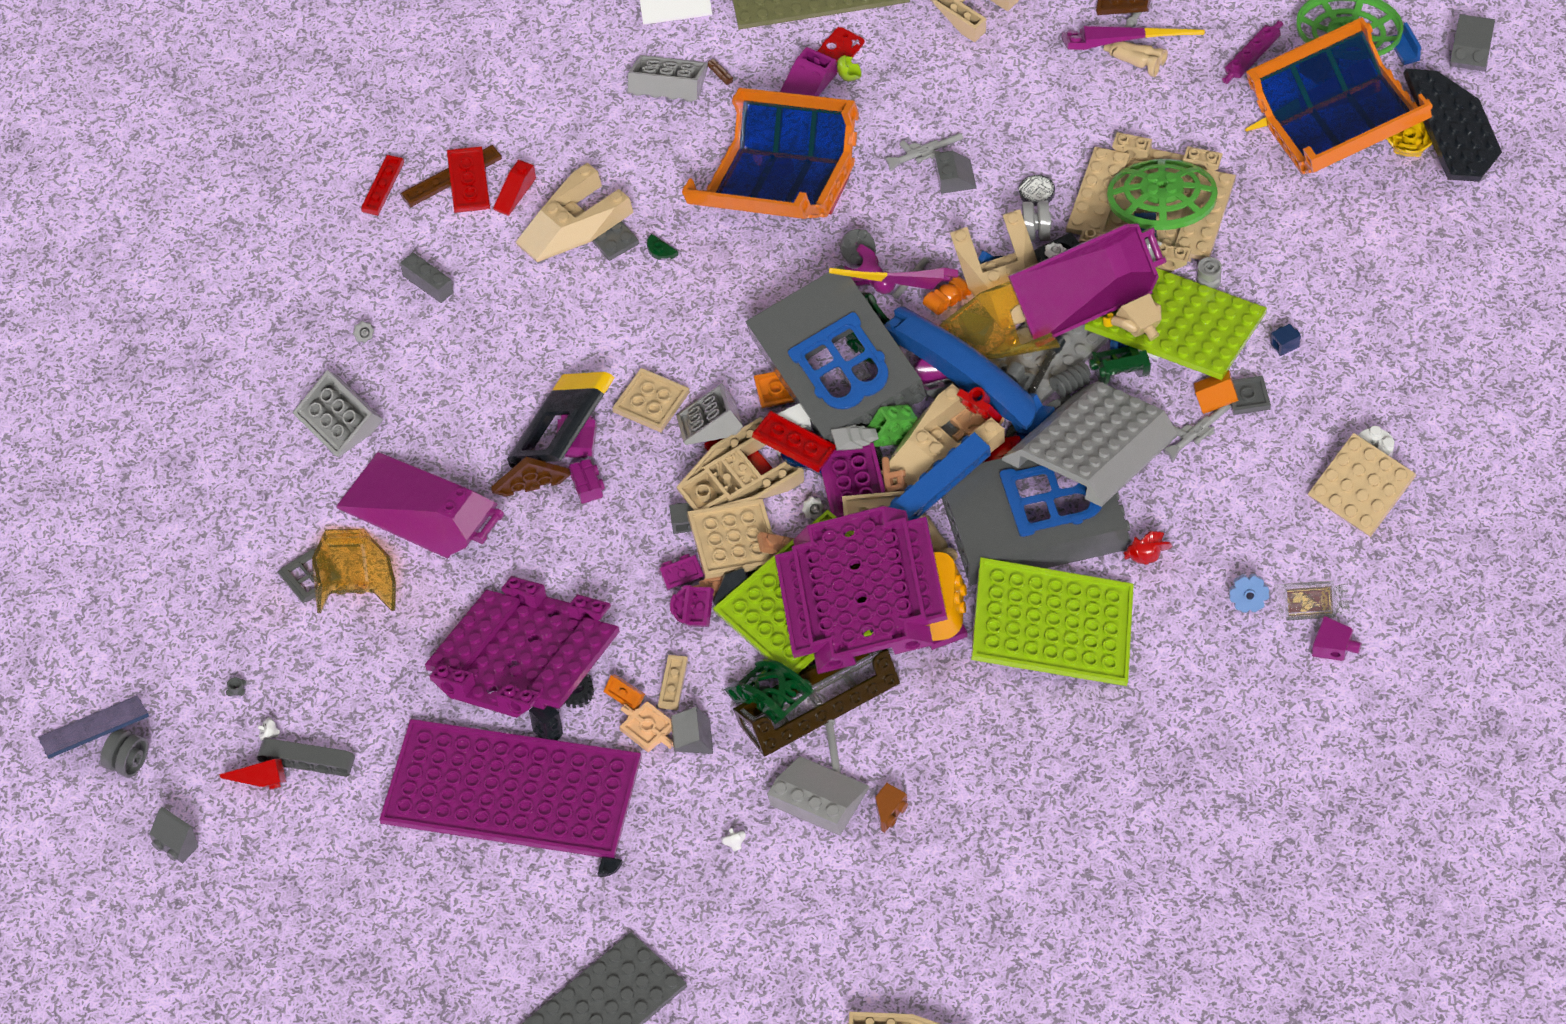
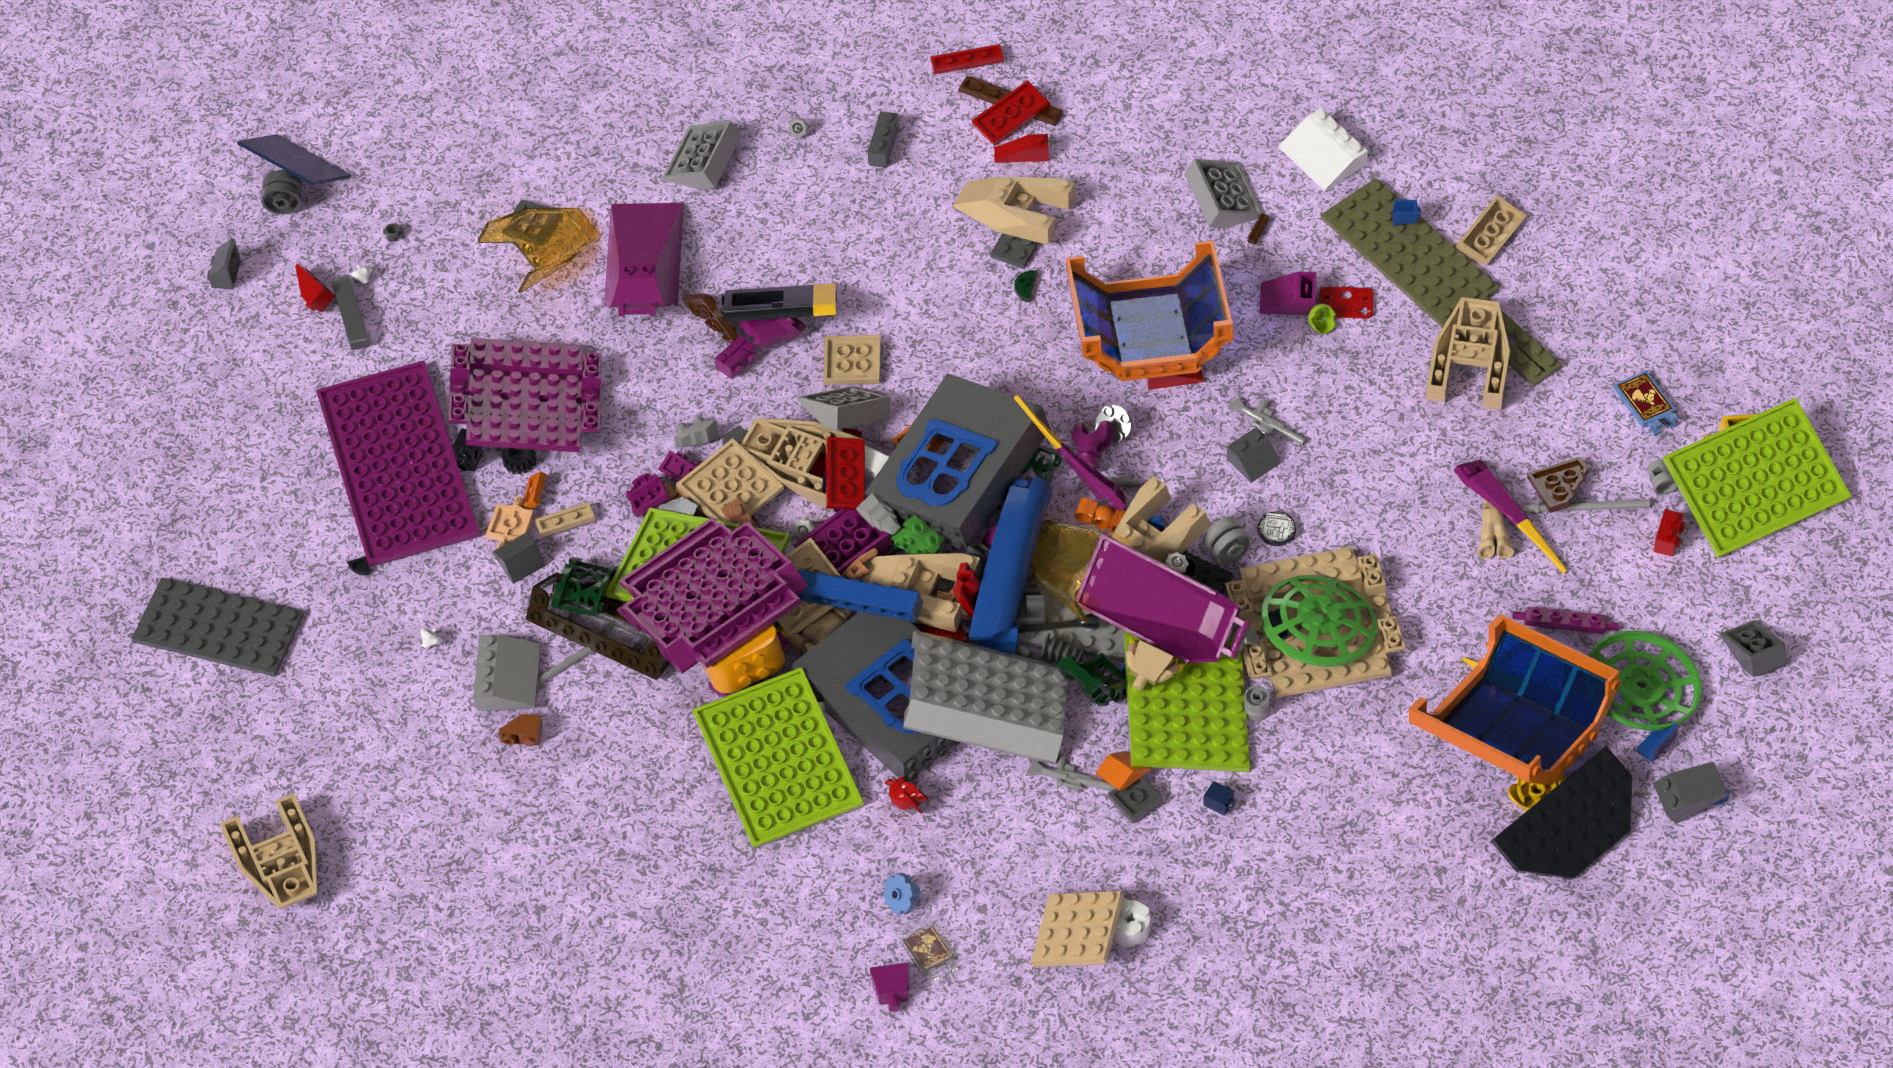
camera: 60 degrees right, 0 degrees up
(654, 541) = (697, 434): none -> light grey connector

